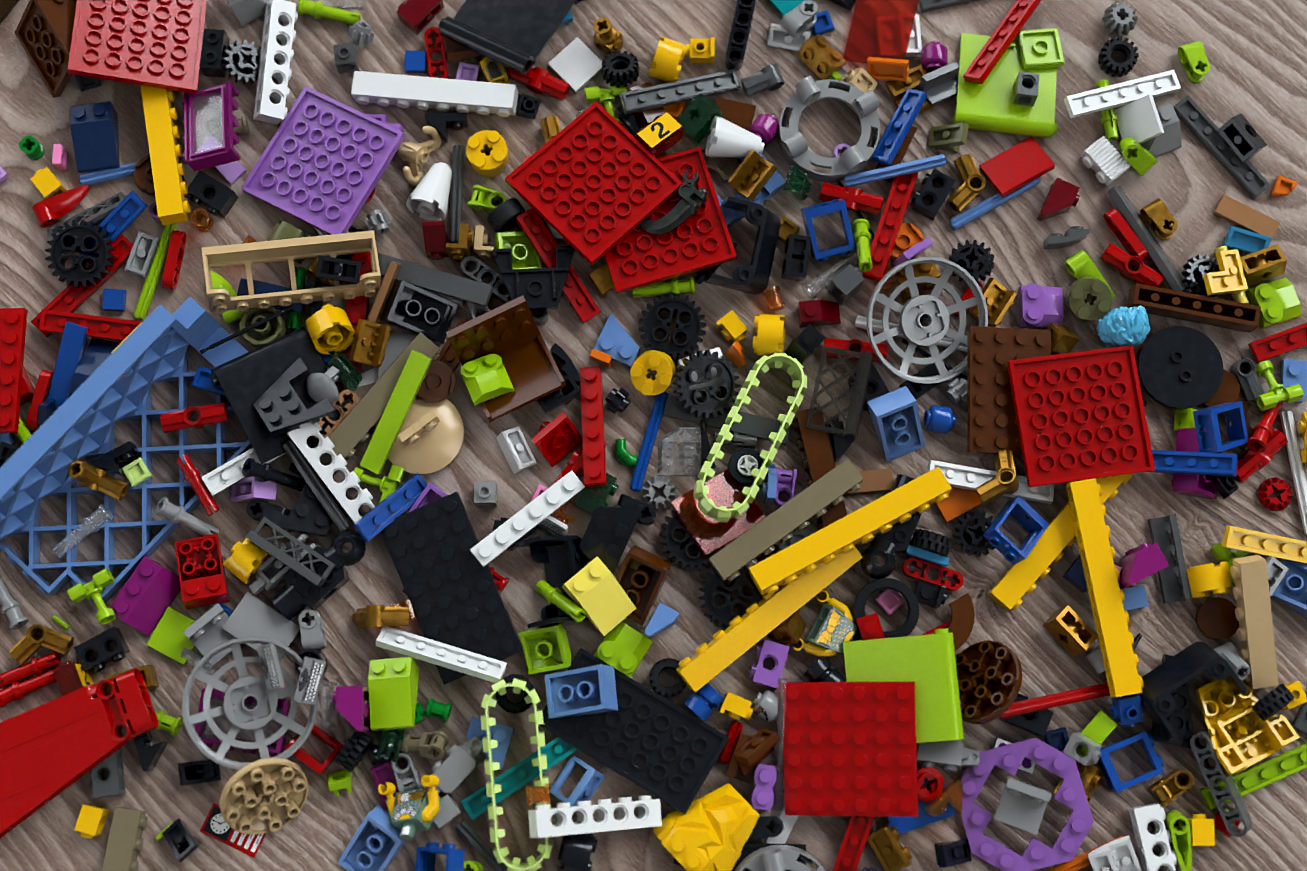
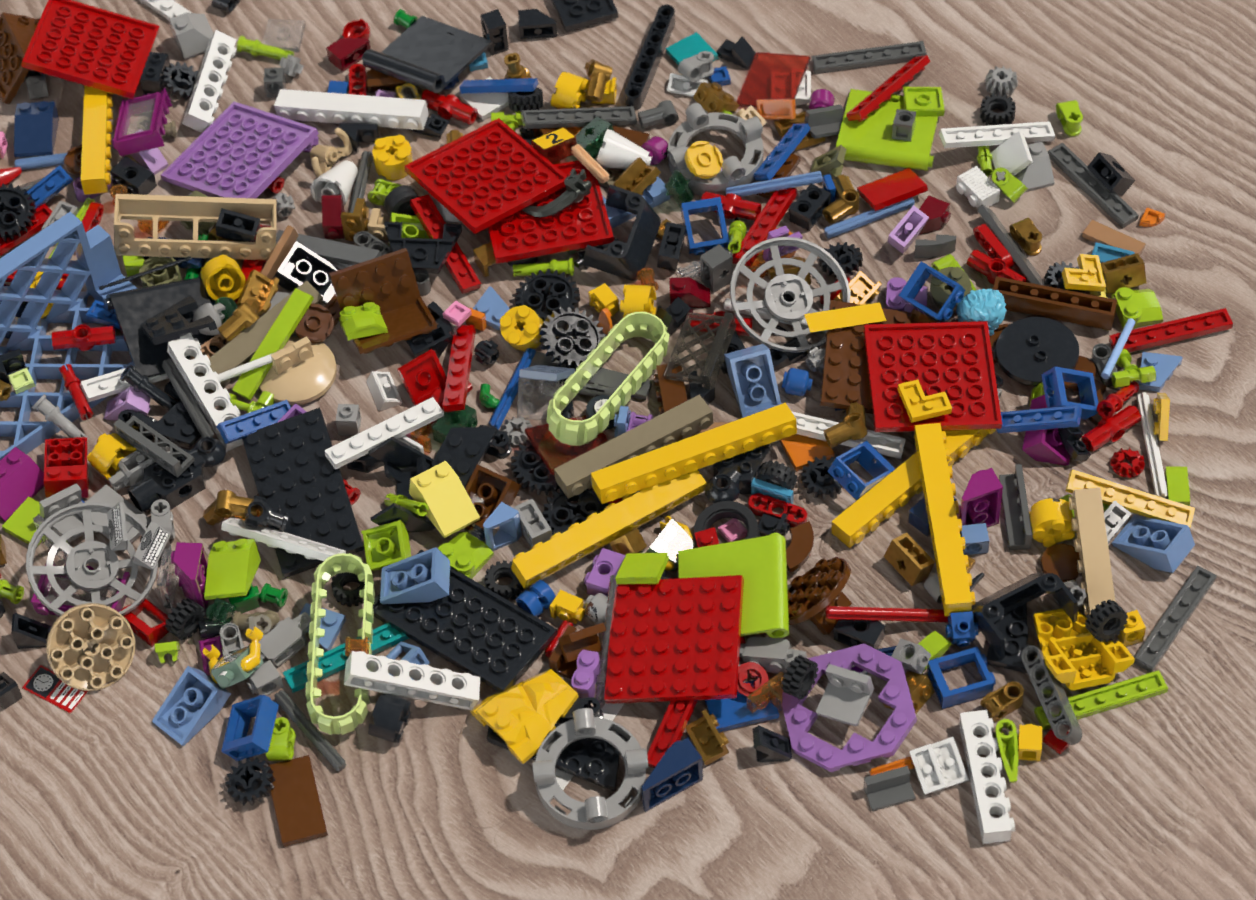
camera: 10 degrees right, 25 degrees down
(360, 385) = (241, 319): none -> pearl gold piece
(372, 444) = (245, 368): none -> white bar
(420, 631) = (267, 515): none -> black connector
(583, 359) = (457, 313): none -> bright pink tile
(590, 54) = (498, 85): none -> blue tile
(636, 625) = (477, 532): none -> black bush
(685, 431) = (547, 373): none -> sand blue tile
(691, 614) = (533, 523): none -> light grey brick
(697, 40) = (599, 76): none -> pearl gold piece
(700, 157) = (579, 152): none -> light nougat axle
(809, 669) = (642, 568): none -> lime tile
(821, 149) = (703, 159): none -> yellow tile
(951, 168) = (829, 186): none -> blue tile
(978, 788) = (800, 677): none -> black tyre
(987, 348) = (845, 317): none -> yellow sticker
(1039, 224) = (907, 229): none -> lavender slope
(1064, 328) = (917, 281): none -> blue window
(1074, 460) = (920, 406): none -> yellow plate
(1255, 389) = (1118, 348): none -> light blue bar

